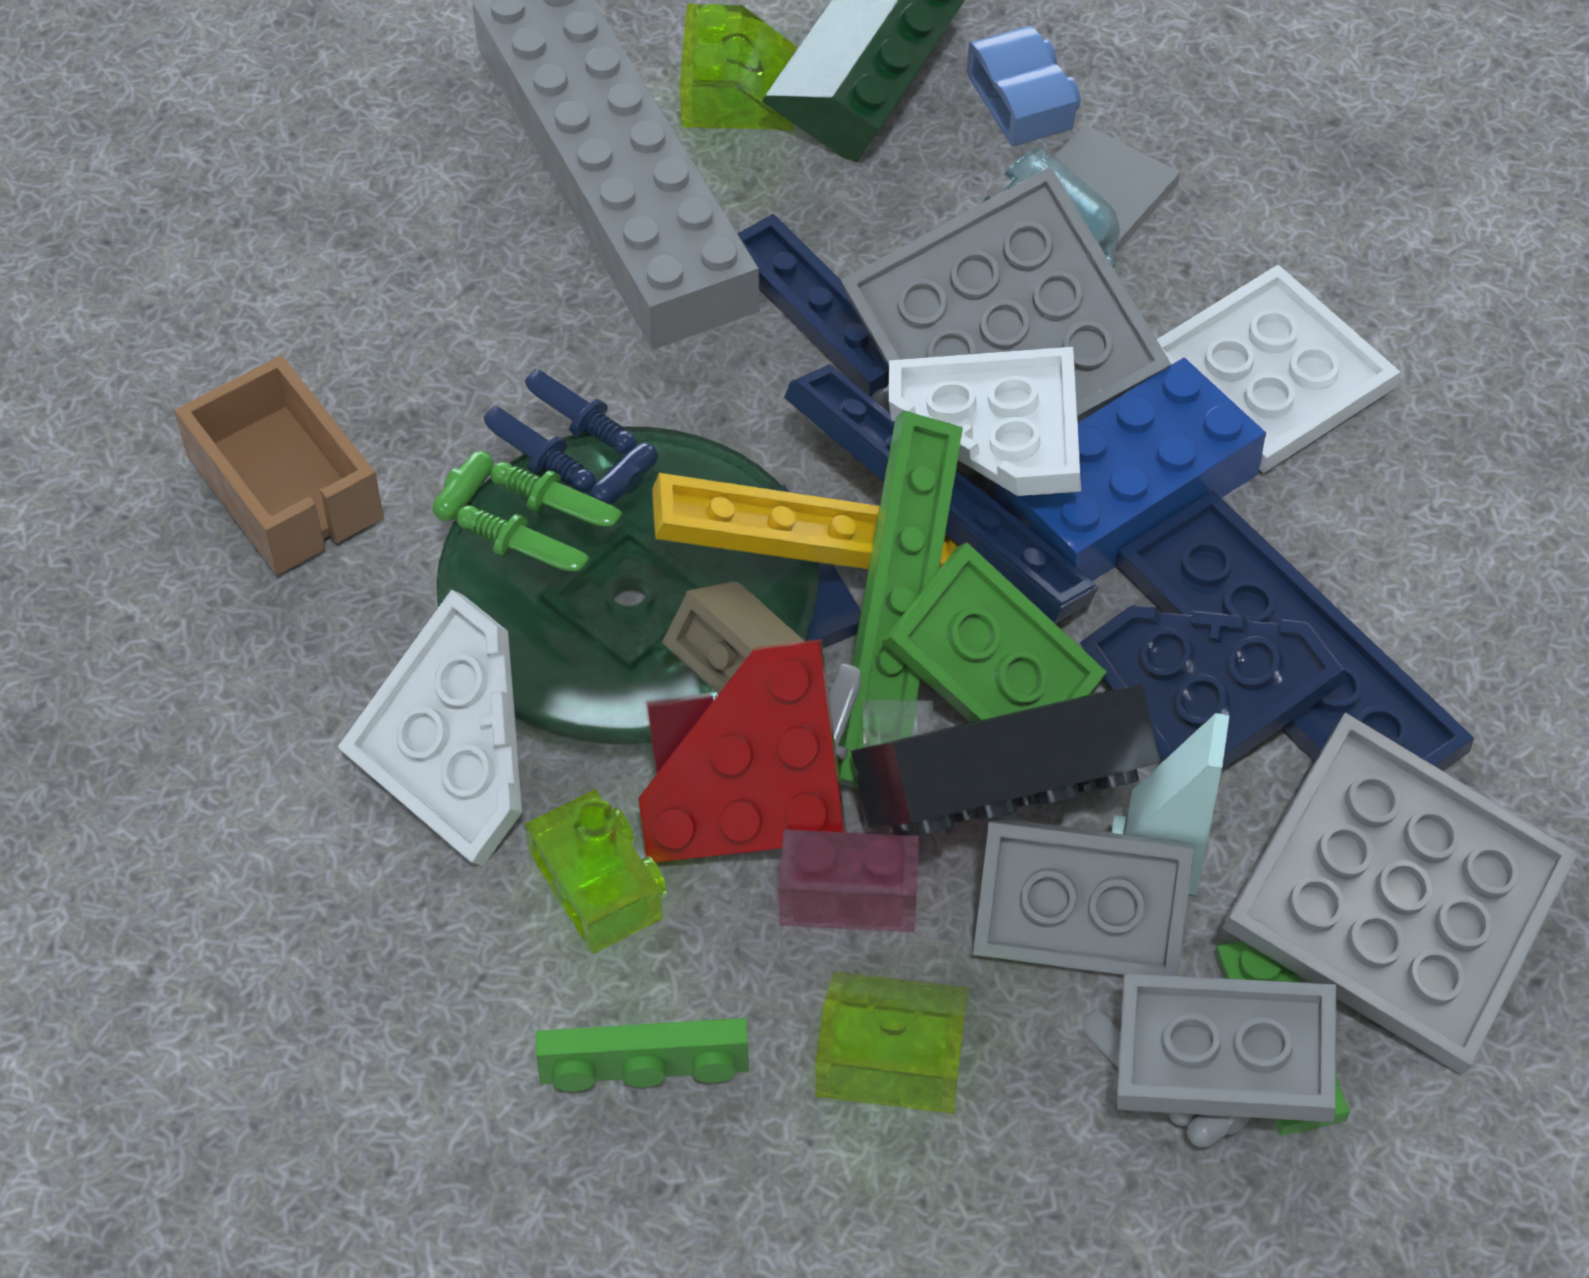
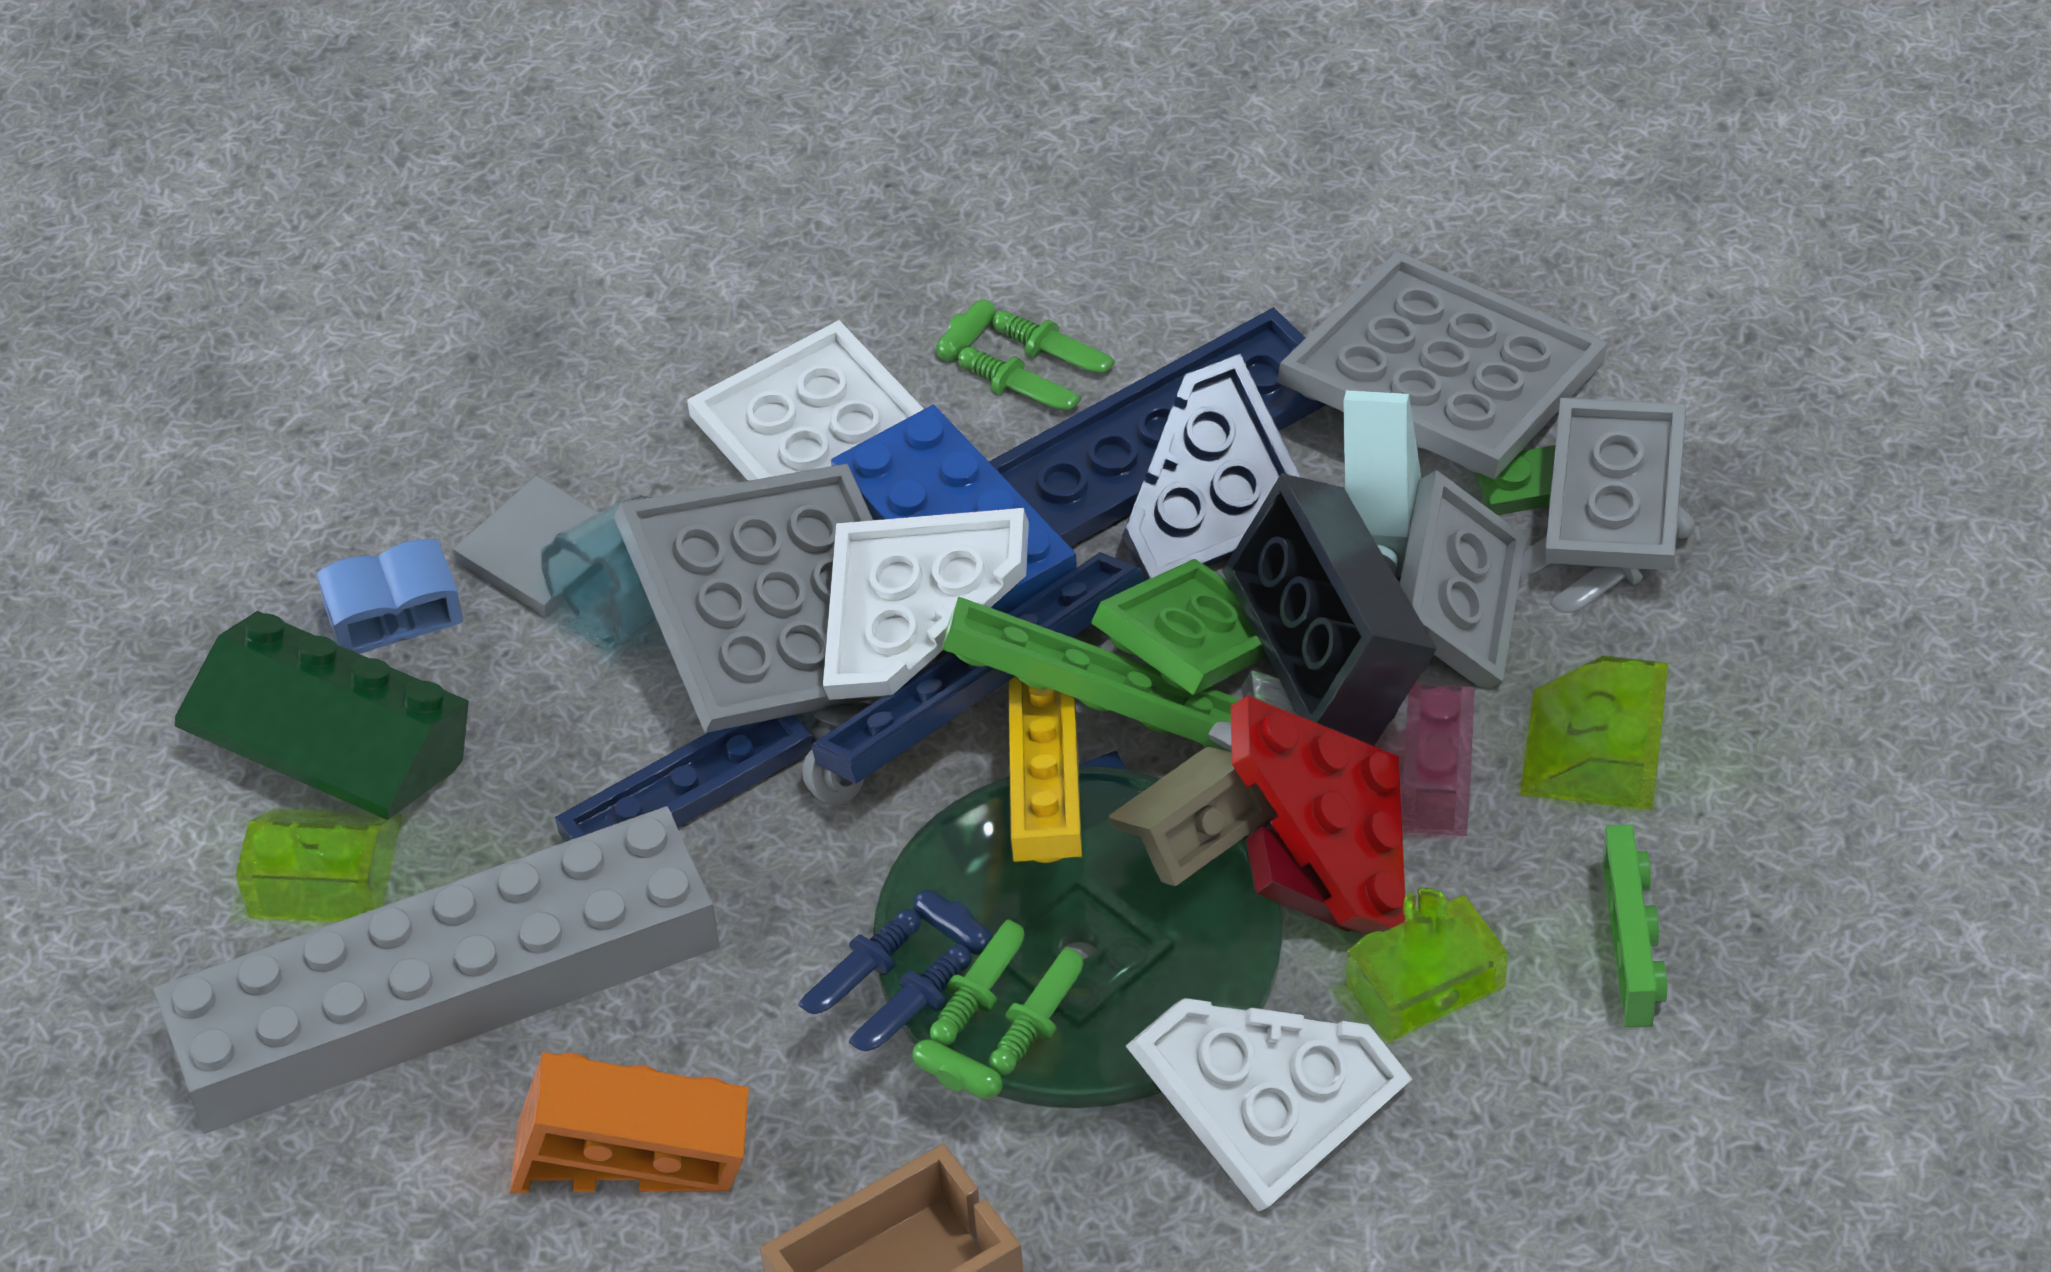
camera: 85 degrees left, 5 degrees down
(436, 280) = (628, 1124): none -> orange wedge
(1412, 546) = (1011, 374): none -> bright green piece

